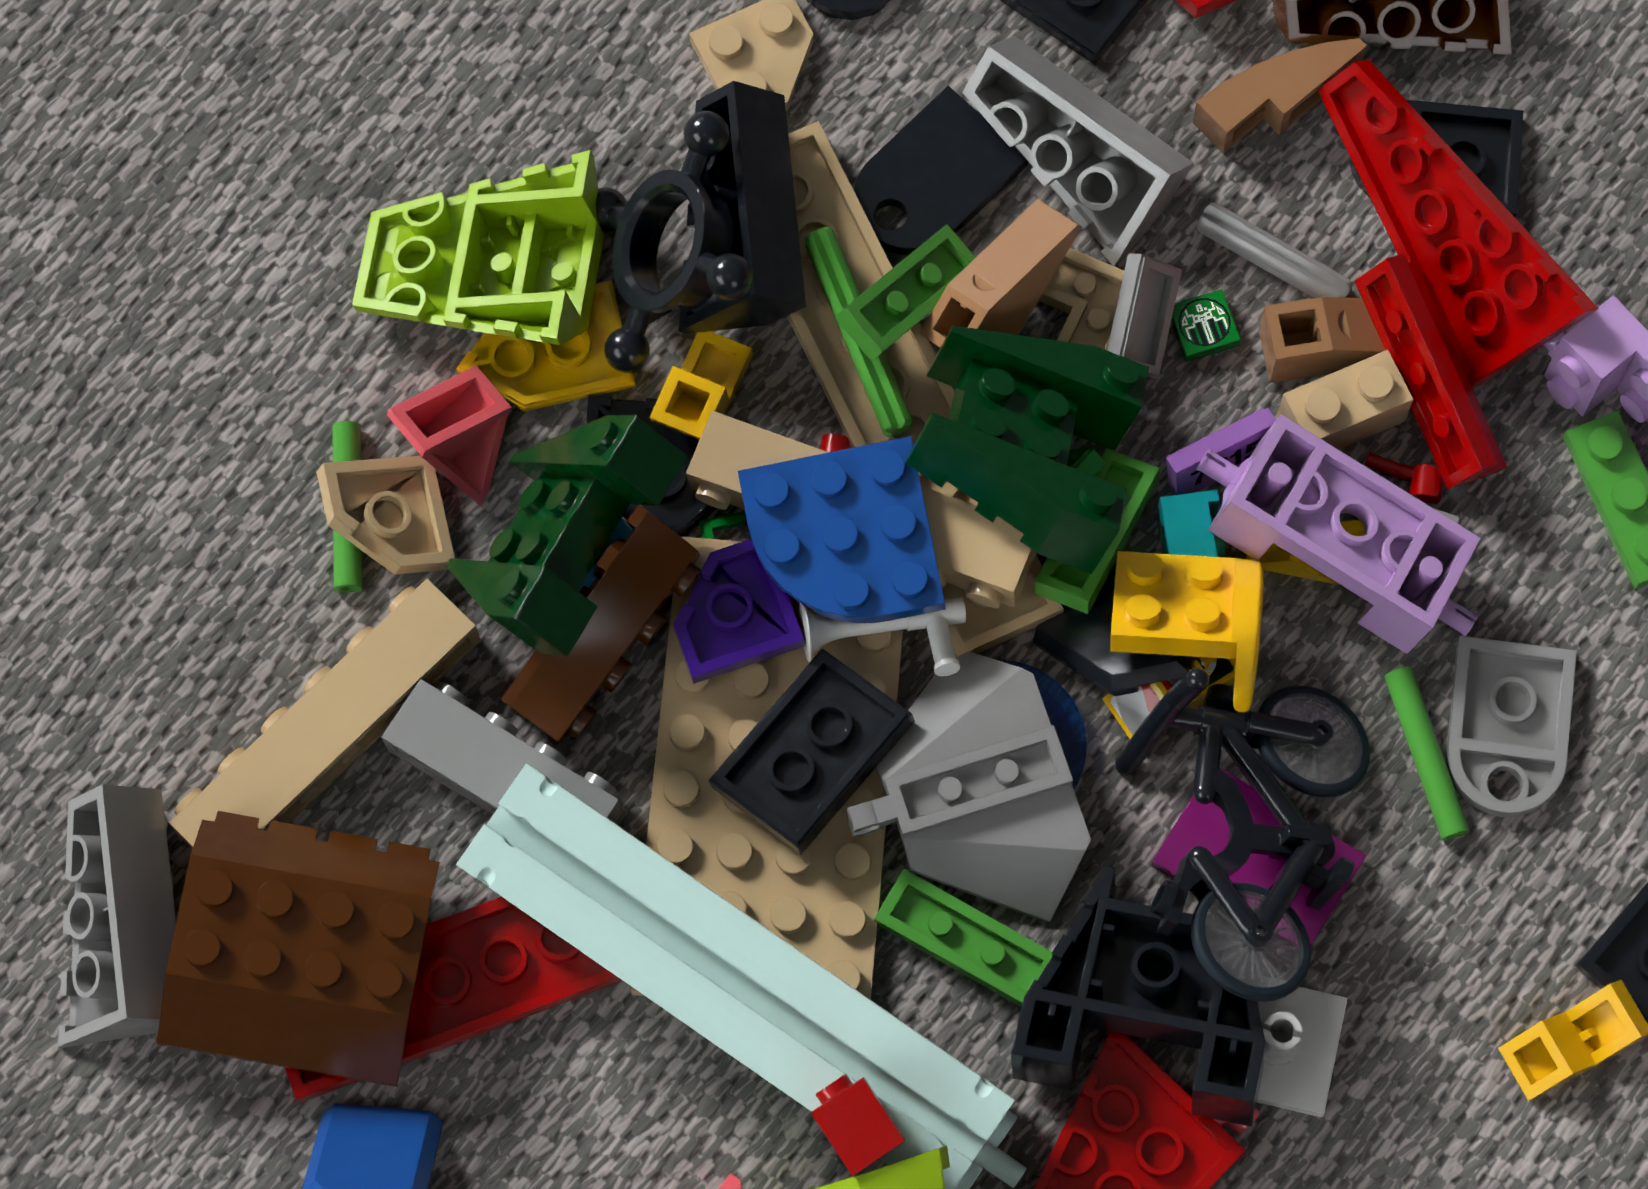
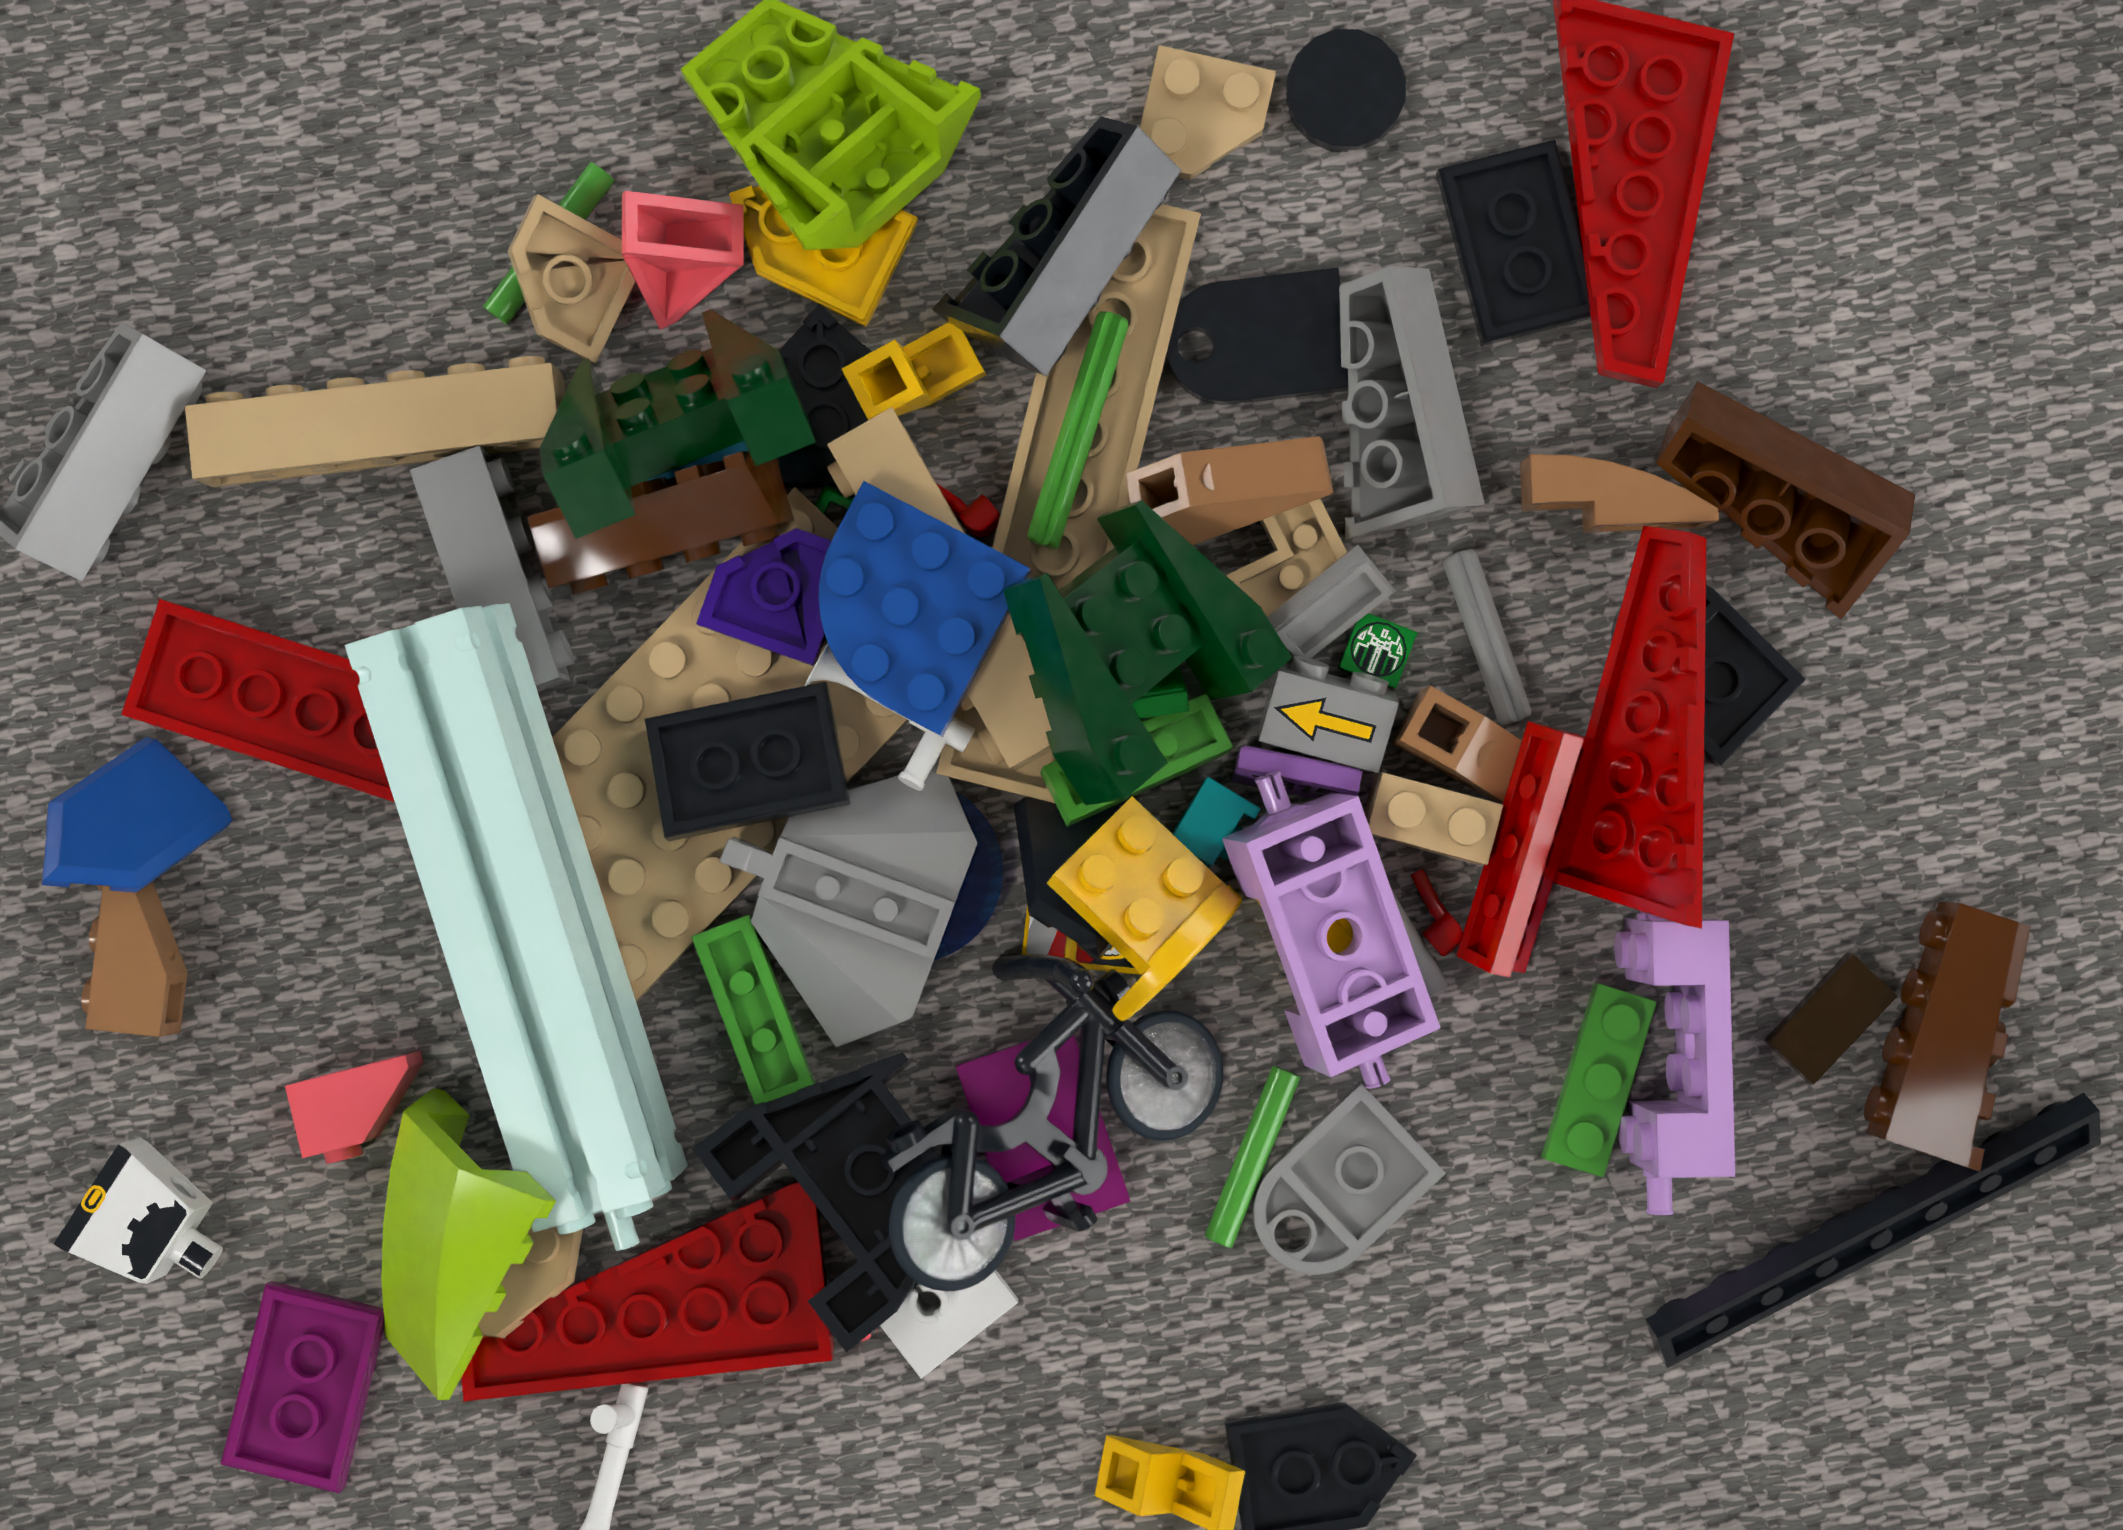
camera: 40 degrees right, 15 degrees up
(297, 948) = (203, 591): reddish brown slope -> none
(639, 228) = (954, 207): black piece -> none
(856, 1123) = (500, 1123): red brick -> none
(904, 293) = (1141, 430): bright green plate -> none
(1208, 391) = (1329, 714): none -> light grey brick

